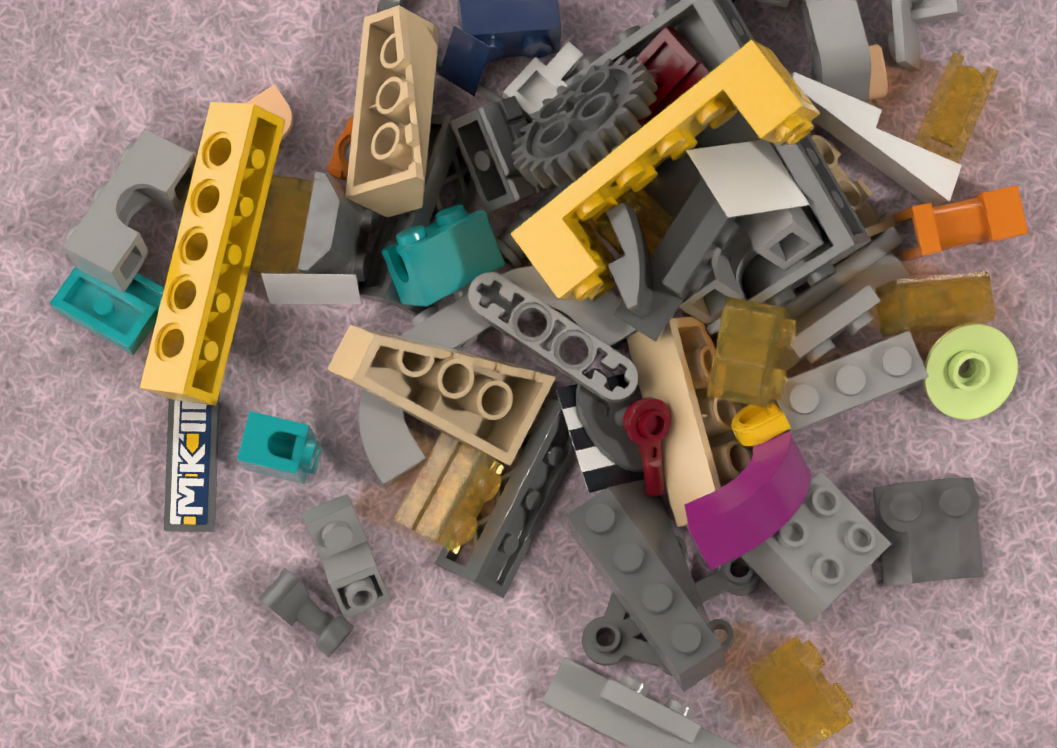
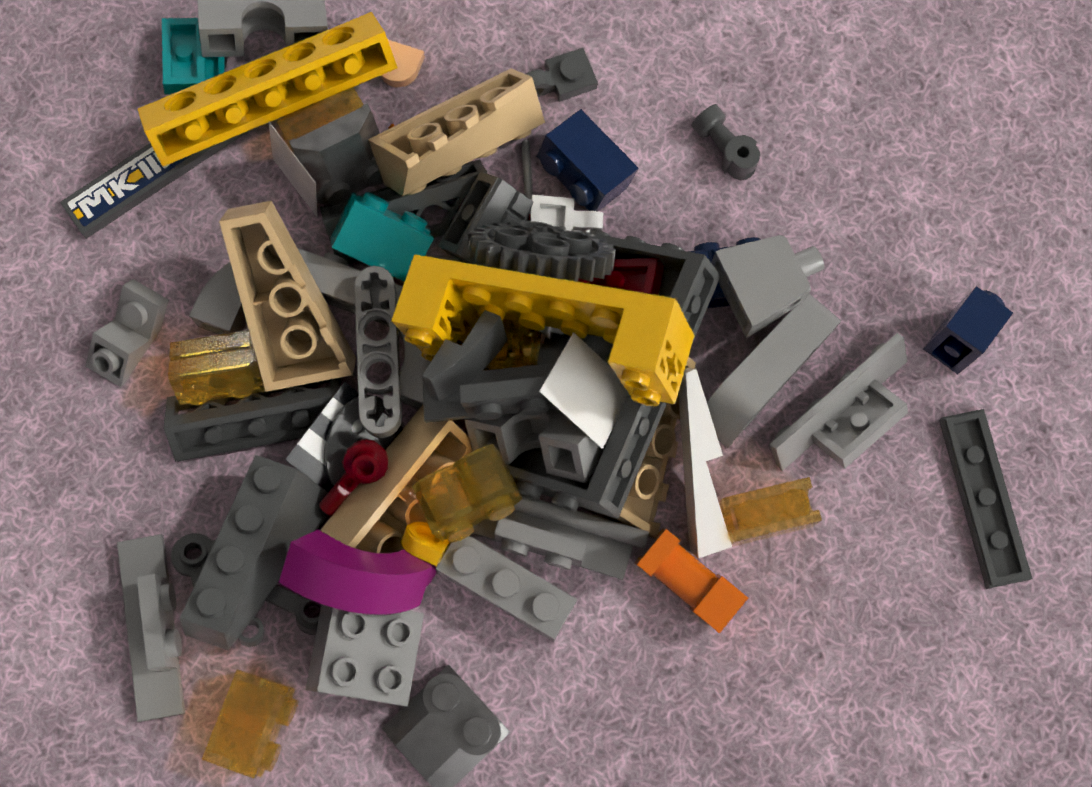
camera: 50 degrees right, 5 degrees down
(279, 448) = (169, 236): teal brick -> none
(292, 602) = (67, 319): dark grey leg -> none
(464, 60) = (533, 153): dark blue sticker -> none
(878, 79) = (751, 435): light nougat tile -> none
(934, 303) = (615, 605): clear yellow brick -> none
(987, 380) = (584, 688): yellowish green dish -> none

